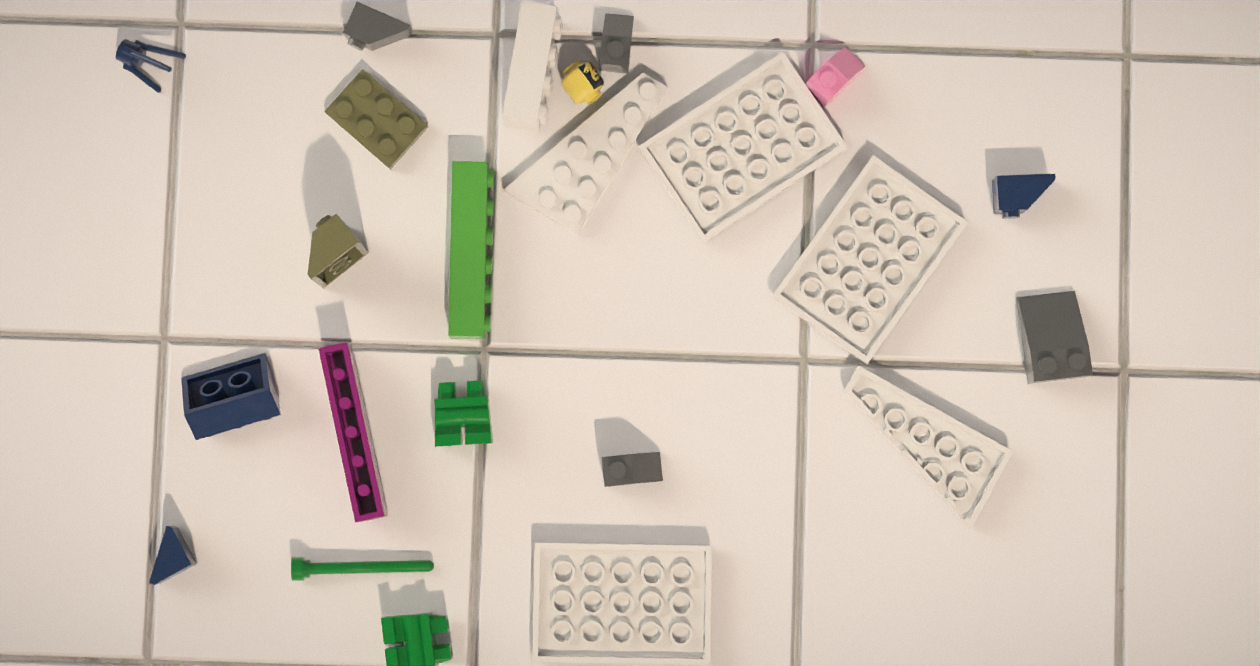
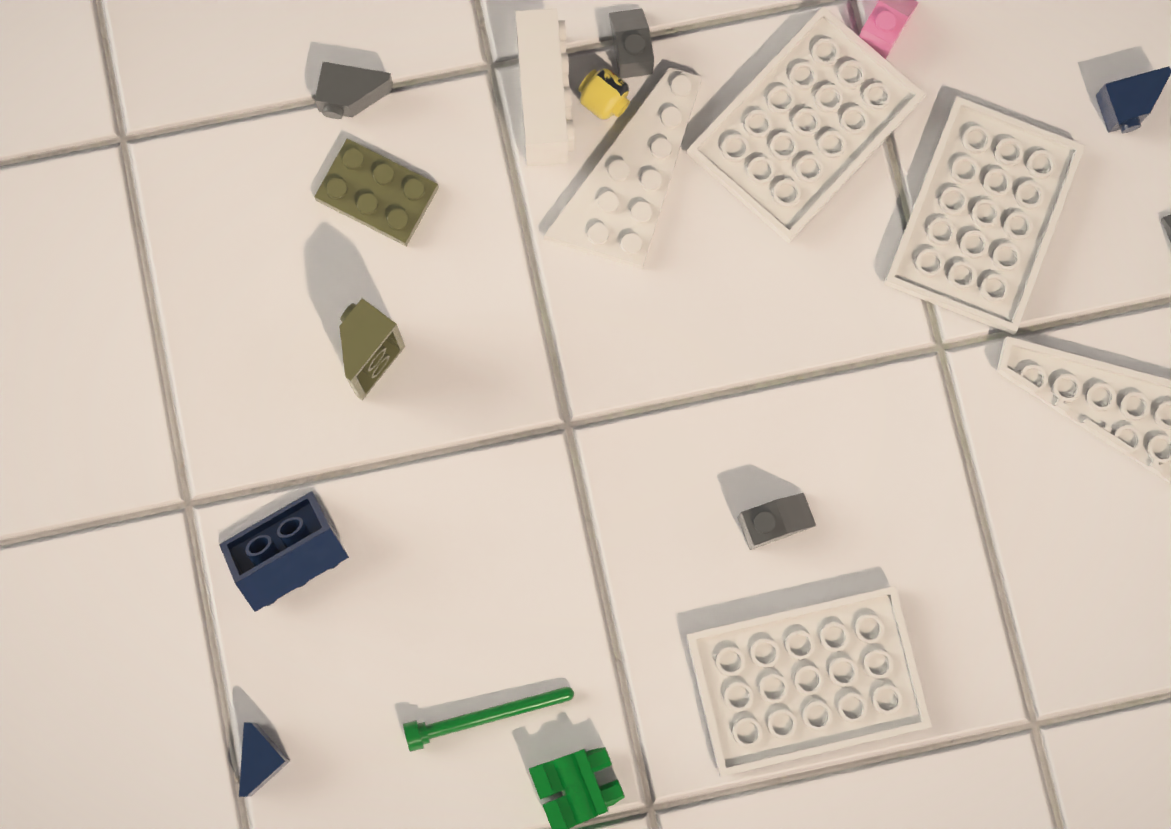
camera: 15 degrees left, 5 degrees down
(133, 55) = (77, 184): dark blue plant -> none
(353, 432) = (440, 557): magenta brick -> none
(459, 413) = (564, 502): green hips -> none
(469, 250) = (523, 314): bright green brick -> none

